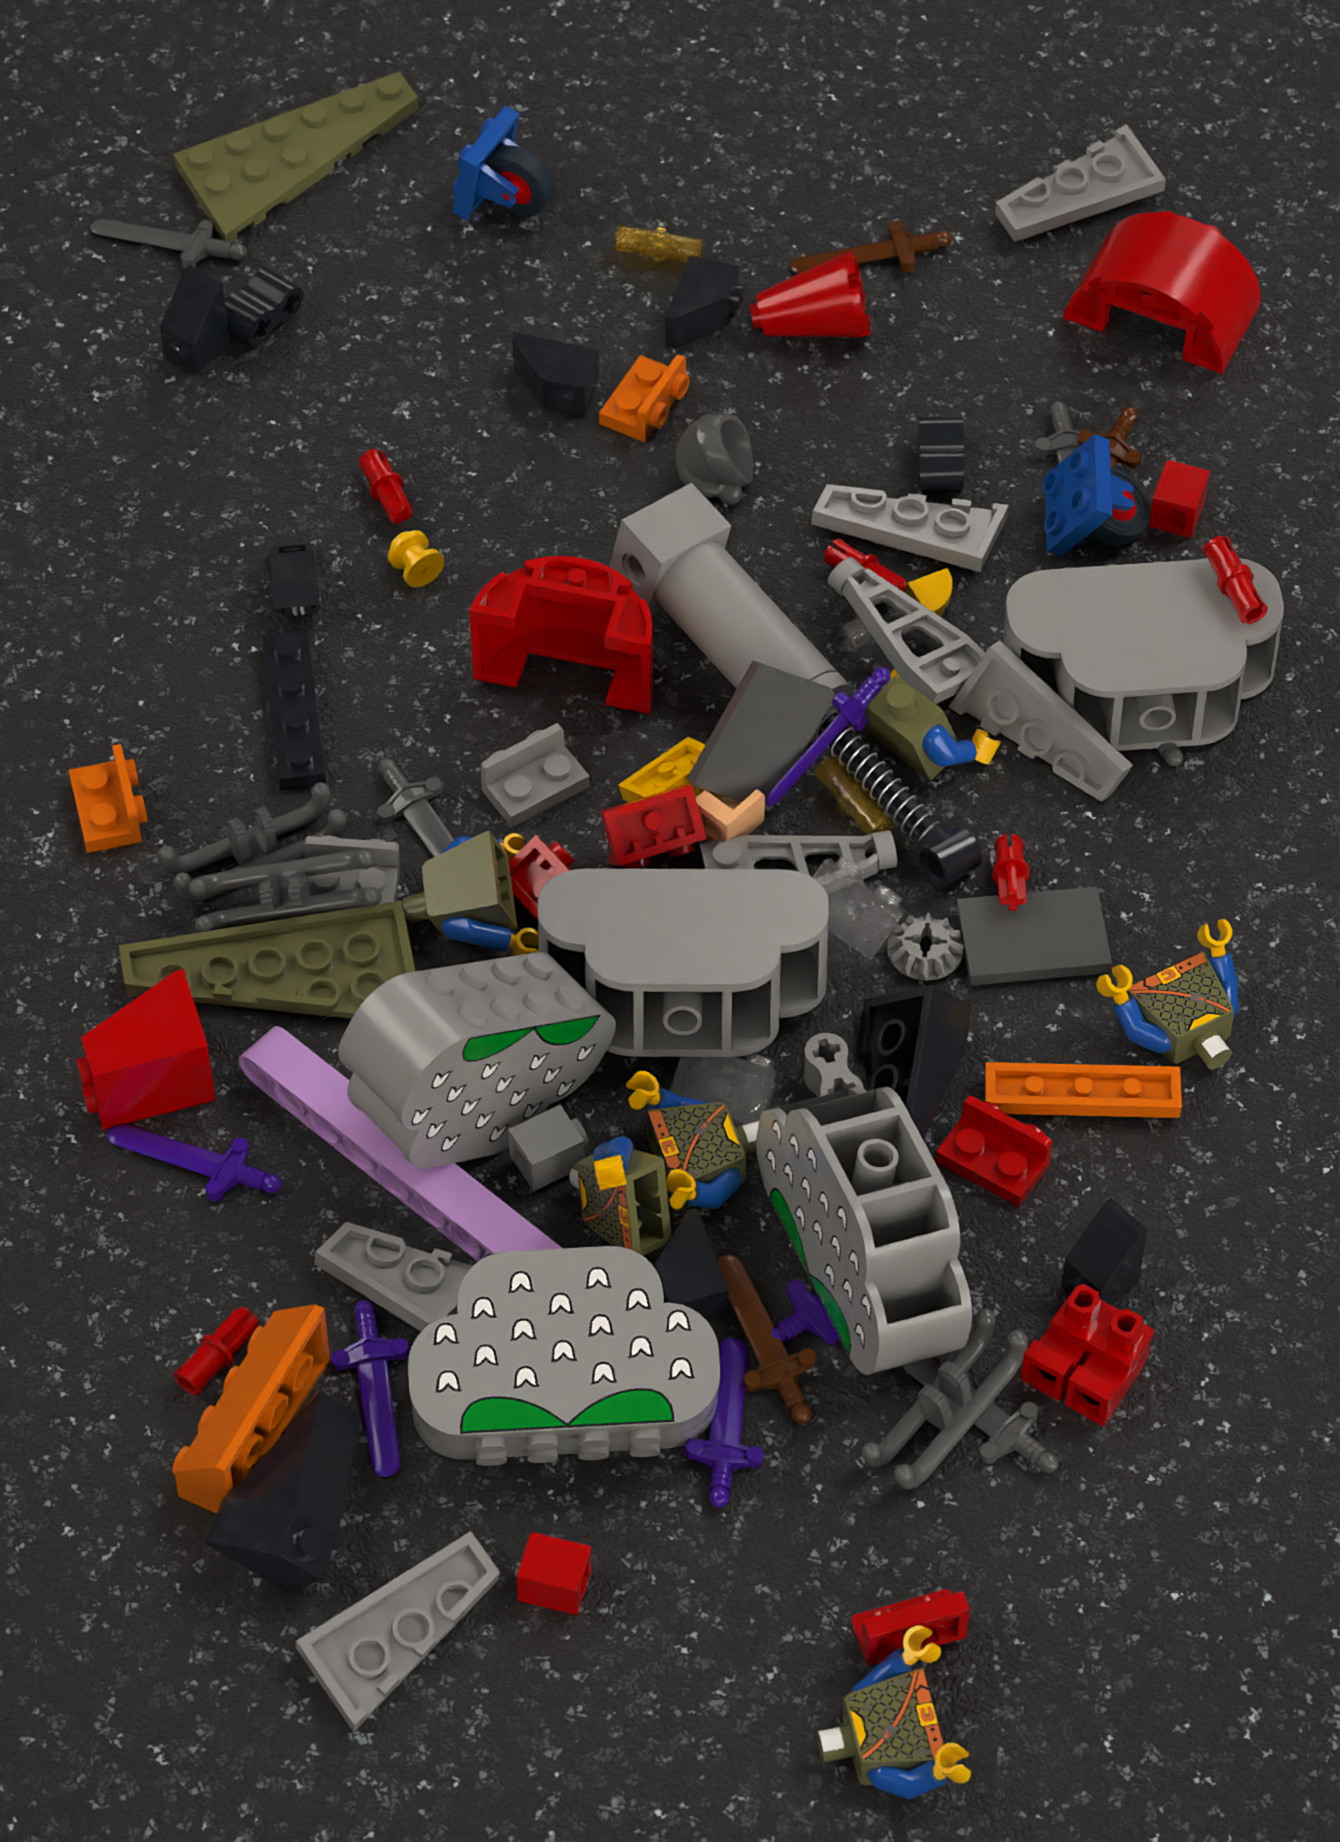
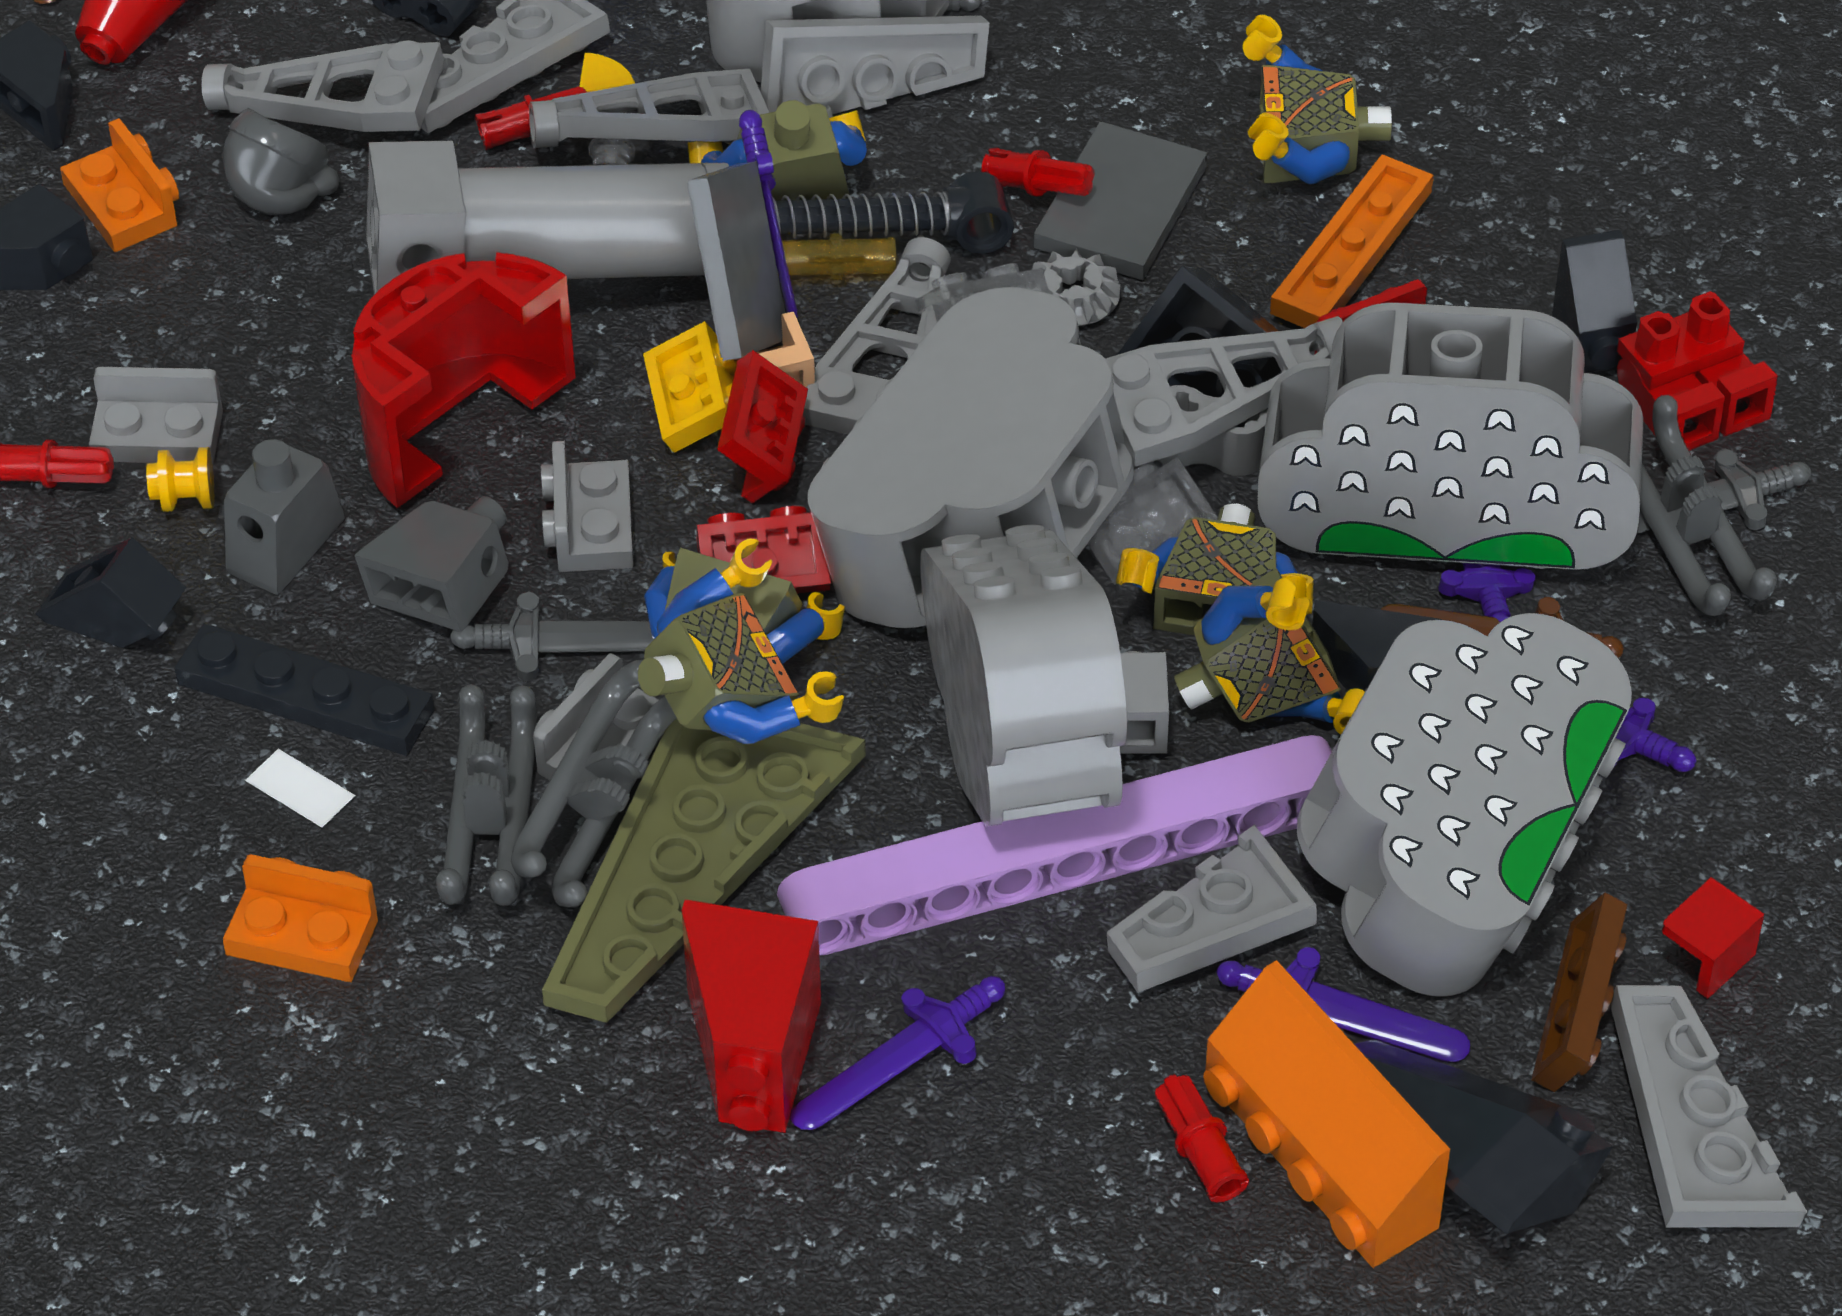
camera: 60 degrees left, 5 degrees down
(219, 749) = (300, 788): none -> white sticker
(398, 896) = (721, 664): none -> torso
(410, 618) = (278, 515): none -> dark grey torso
(428, 720) = (437, 562): none -> dark grey torso
(460, 1517) = (1581, 993): none -> reddish brown plate
(462, 518) = (156, 411): none -> light grey bracket
(811, 1021) = (1149, 411): none -> light grey plate
(814, 487) = (395, 99): none -> light grey plate

